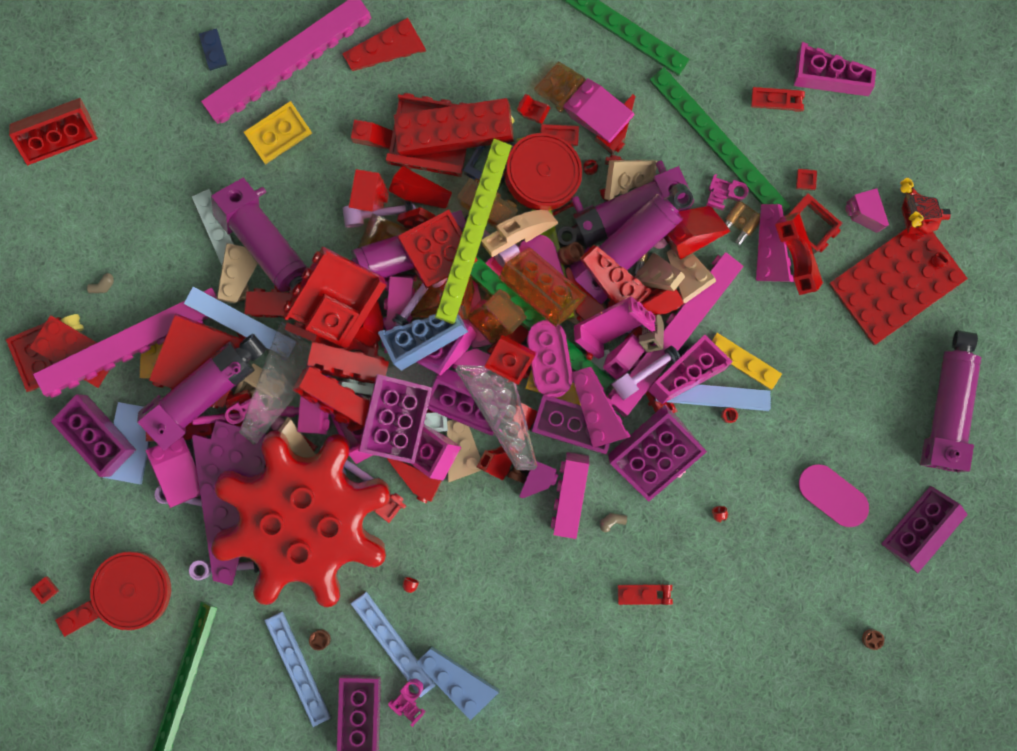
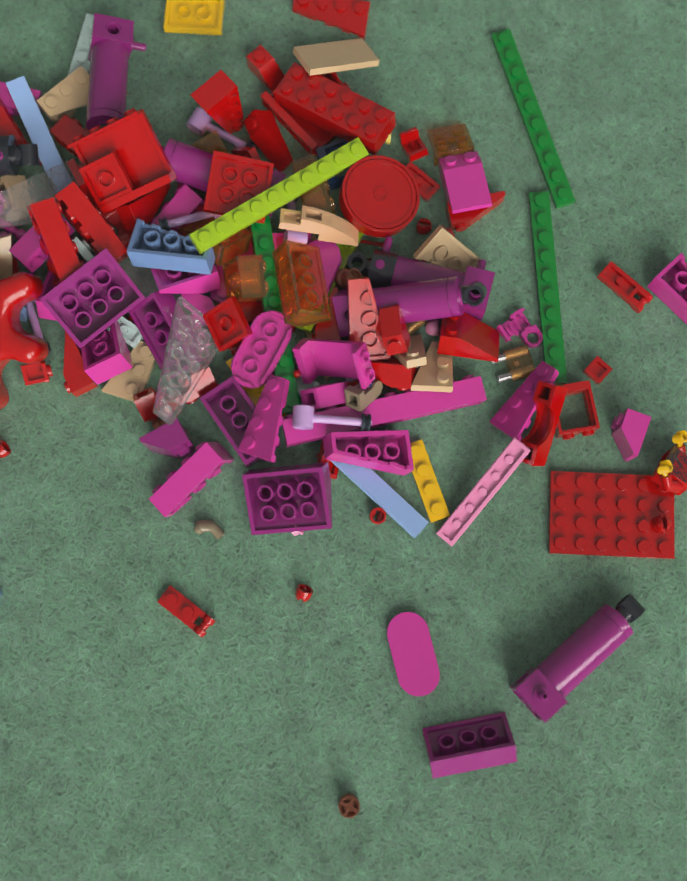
camera: 30 degrees right, 5 degrees down
(421, 85) = (335, 56): none -> tan tile
(641, 269) = (394, 330): none -> red slope
(794, 337) = (483, 491): none -> bright pink tile

